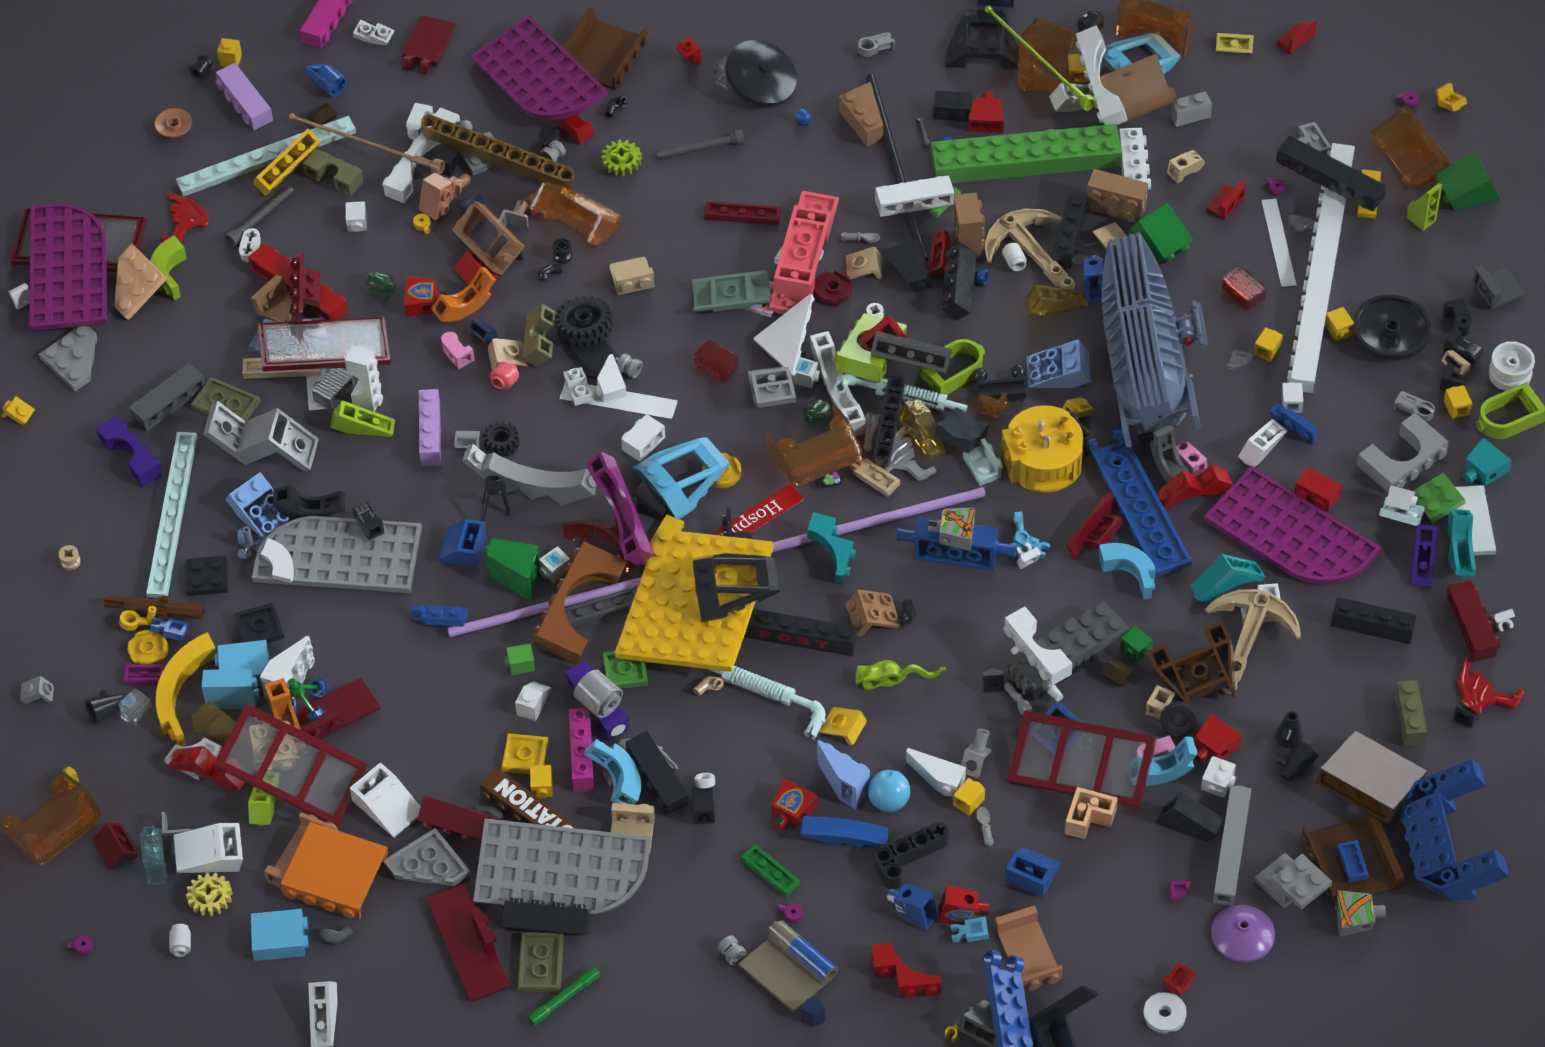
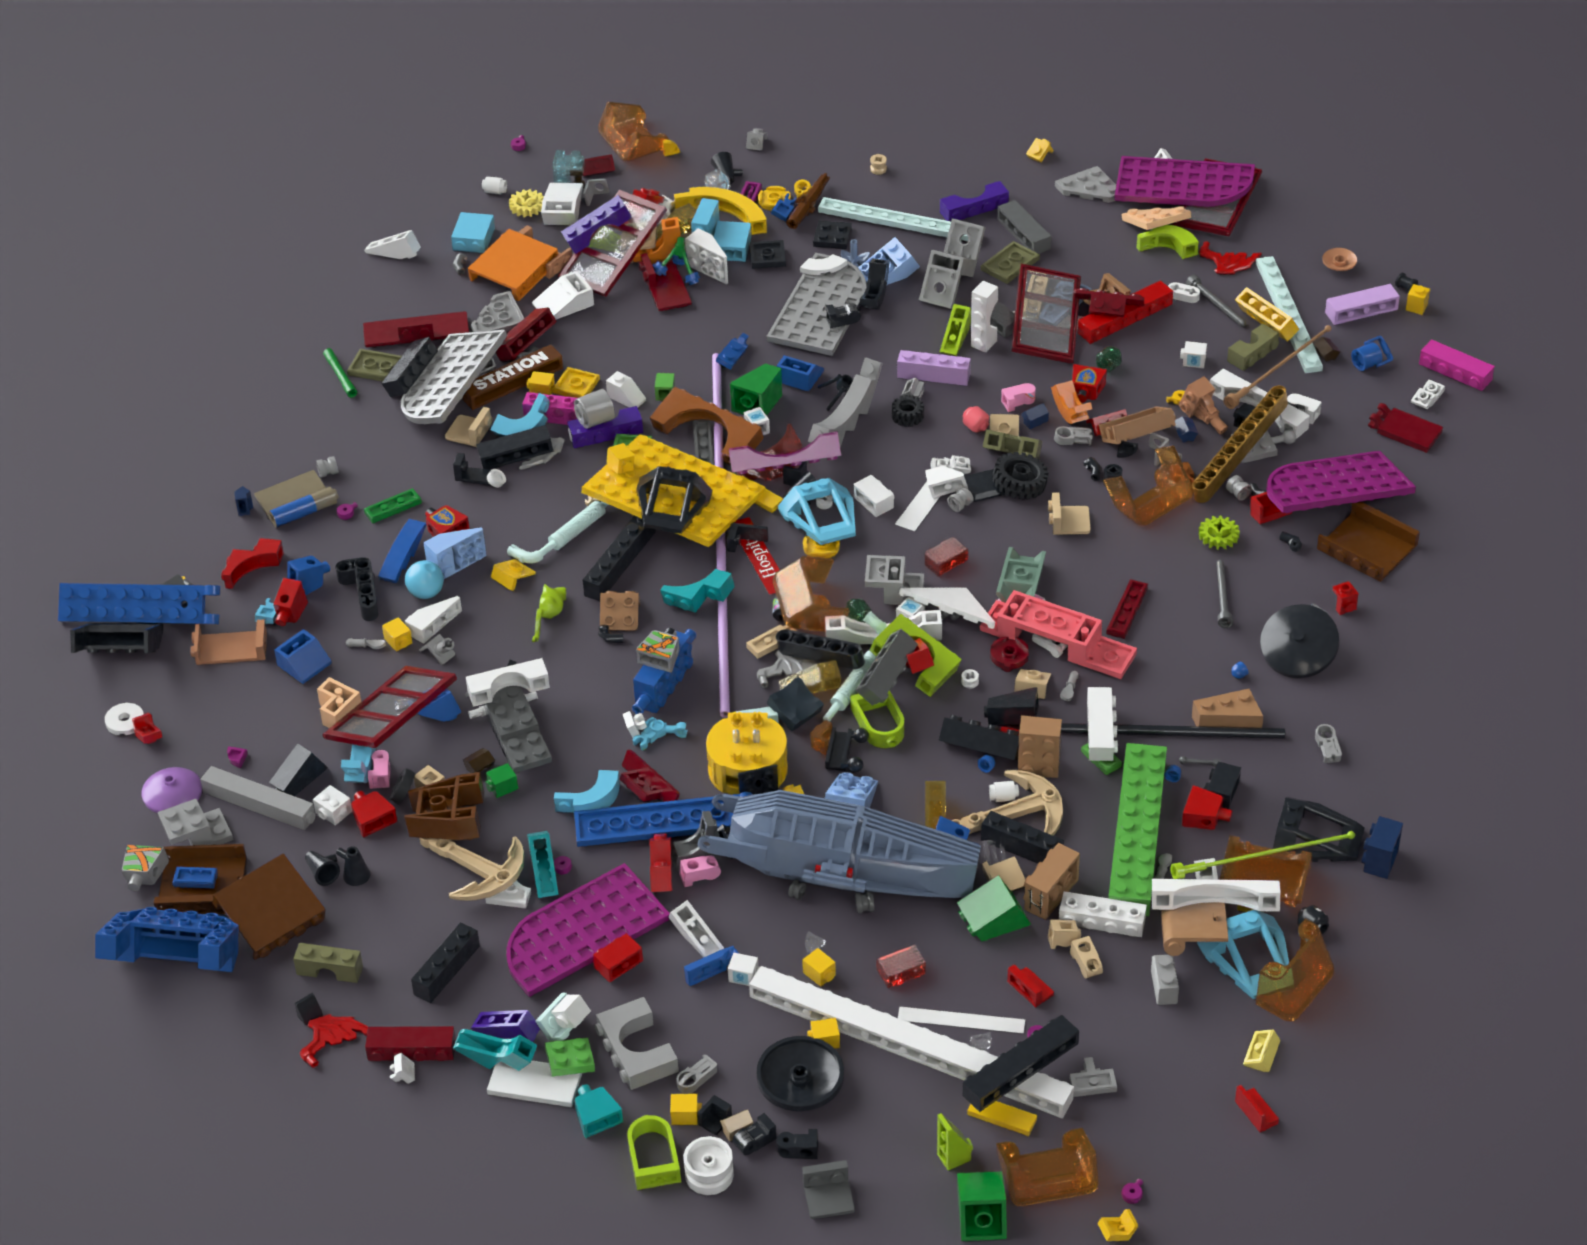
camera: 105 degrees right, 10 degrees down
(289, 789) = (580, 232): none -> dark purple arch
(505, 293) = (1074, 434): none -> light grey piece
(683, 638) = (620, 458): none -> yellow brick
(1166, 184) = (1062, 933): none -> tan brick

